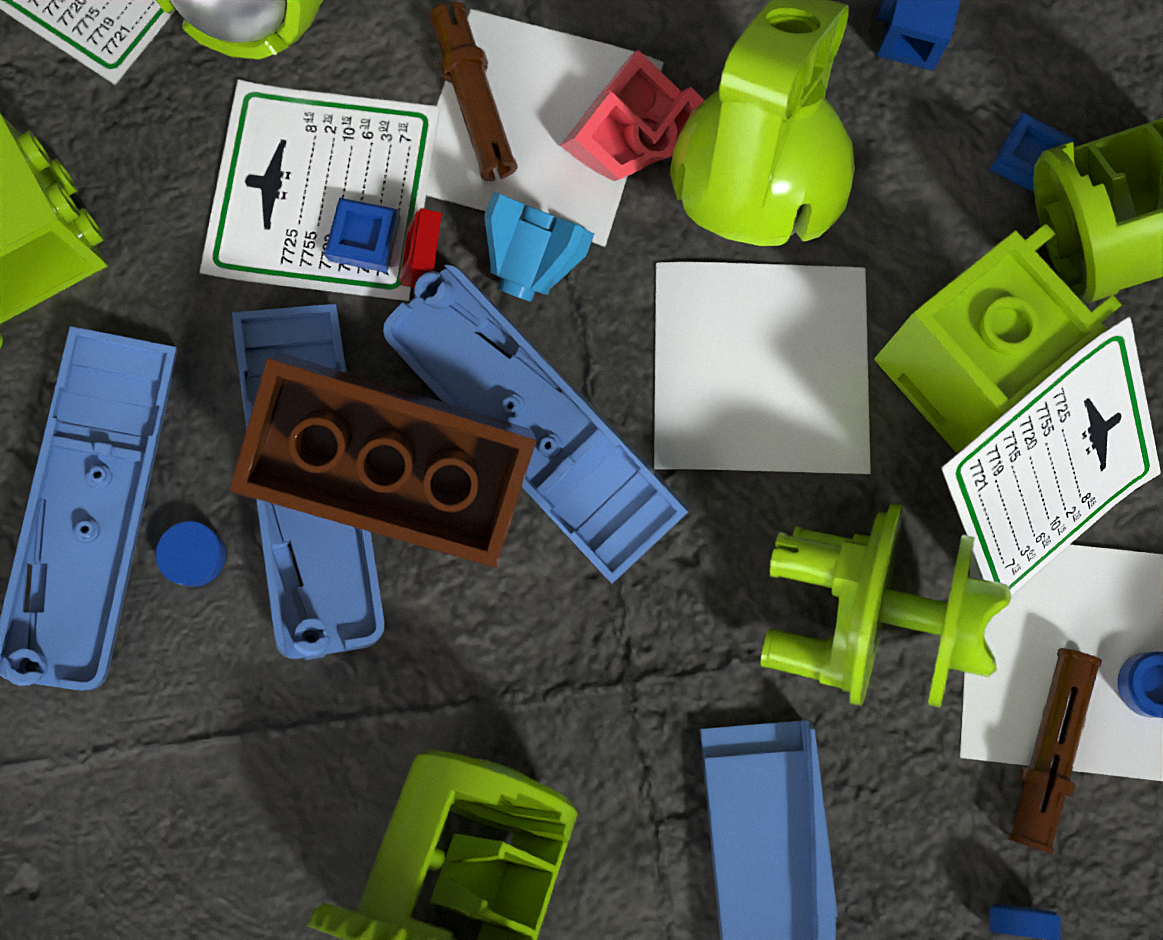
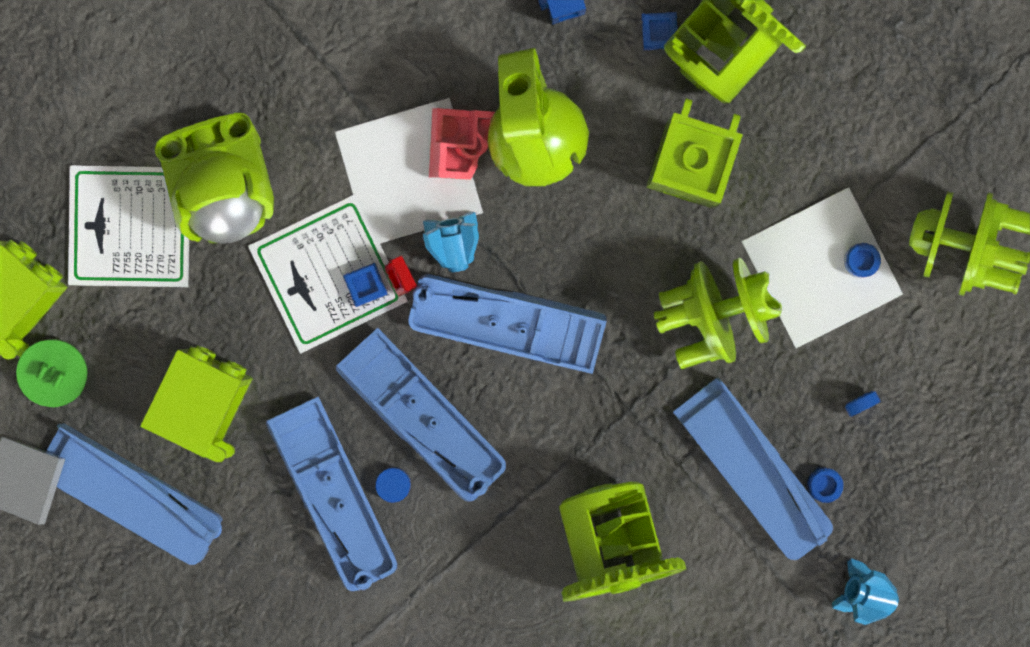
camera: 30 degrees left, 10 degrees up
(382, 459) = (459, 389): reddish brown brick -> none
(465, 68) = (357, 169): reddish brown pin -> none
(761, 368) = (595, 224): white sticker -> none
(1056, 460) = (757, 198): white sticker -> none
(1076, 677) = (844, 359): reddish brown pin -> none

